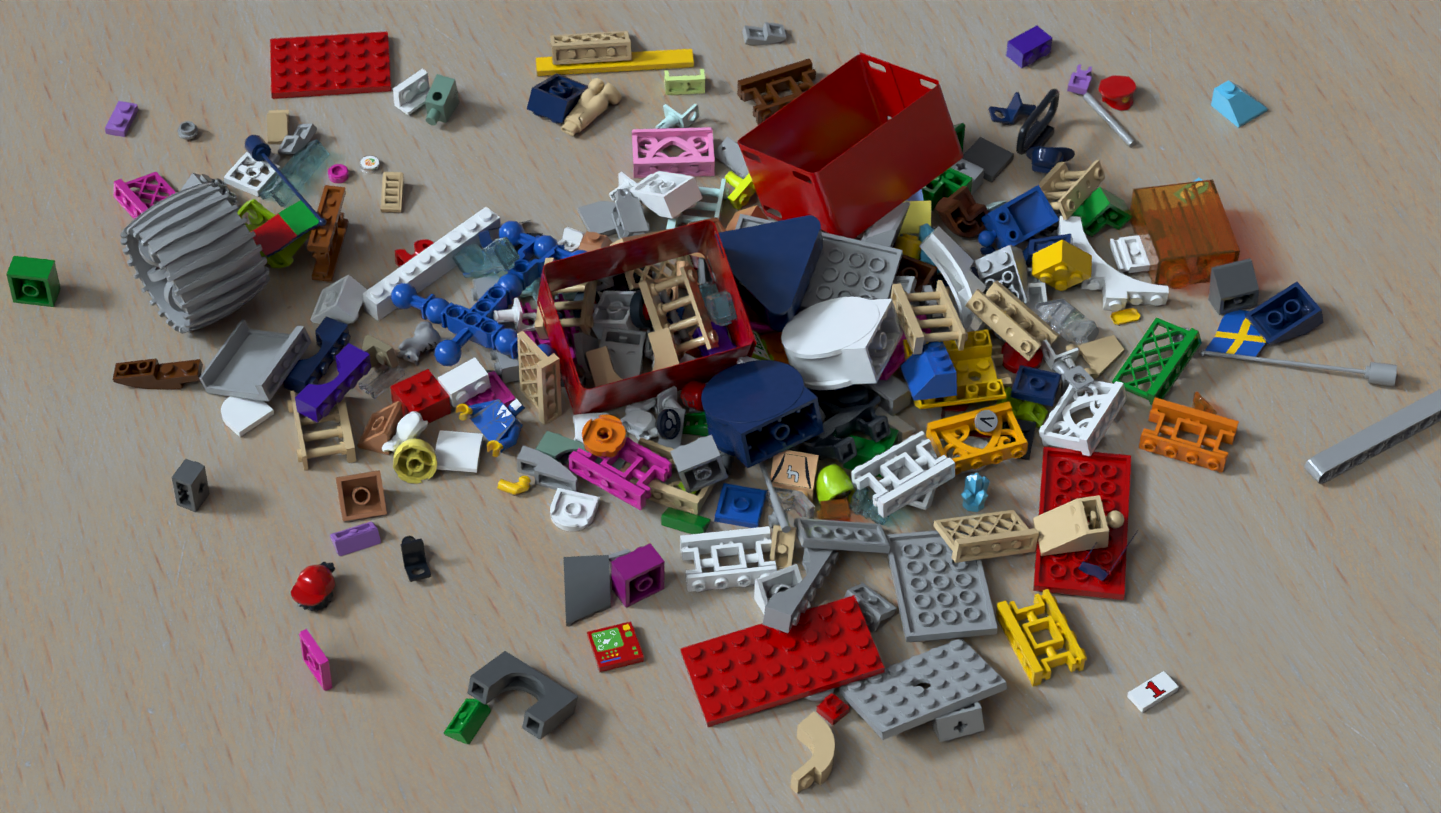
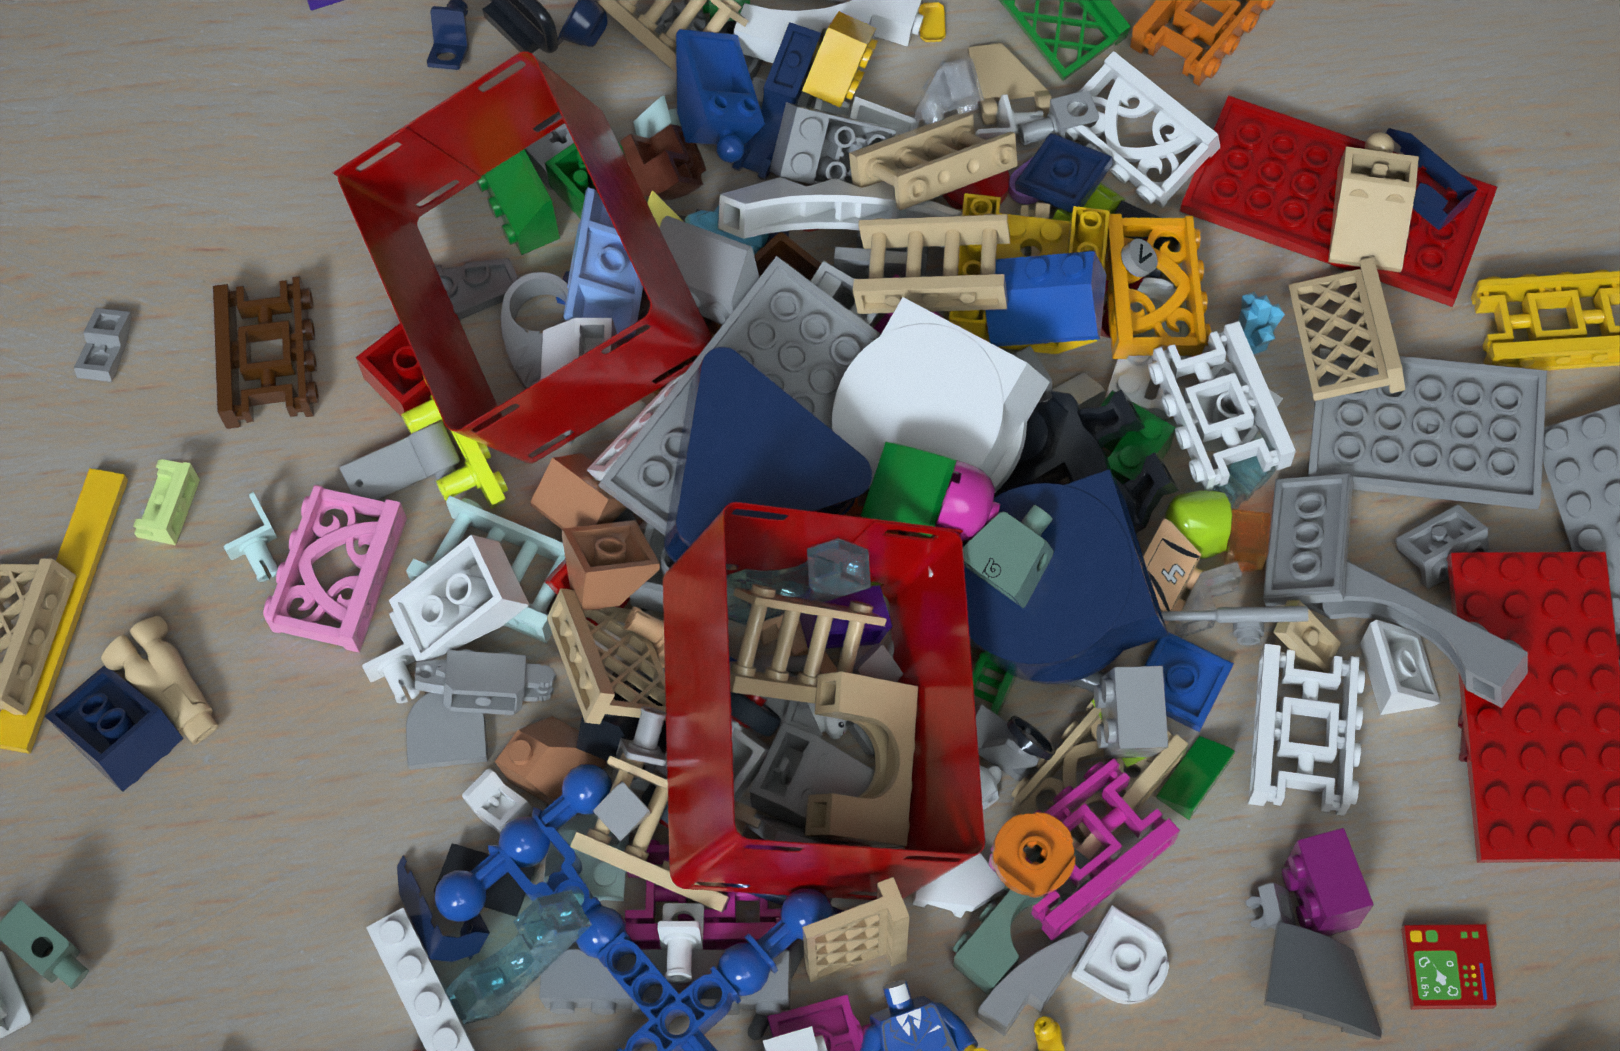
camera: 70 degrees left, 15 degrees up
(754, 372) = (1011, 554): none -> sand green torso
(776, 322) = (908, 486): none -> green slope
(776, 345) = (968, 501): none -> dark pink cylinder

